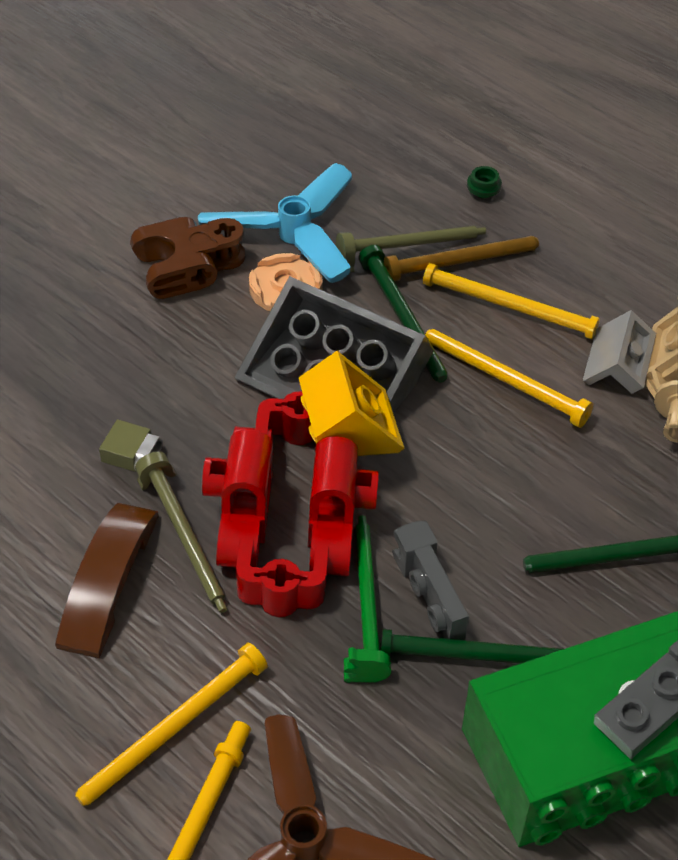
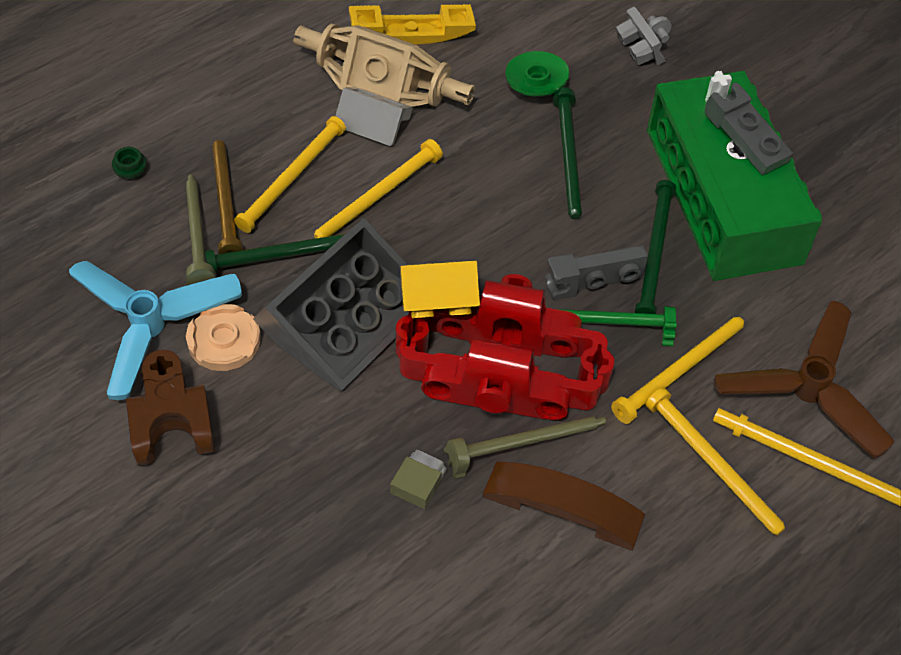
camera: 85 degrees left, 5 degrees up
(235, 626) = (626, 408): none -> yellow bar

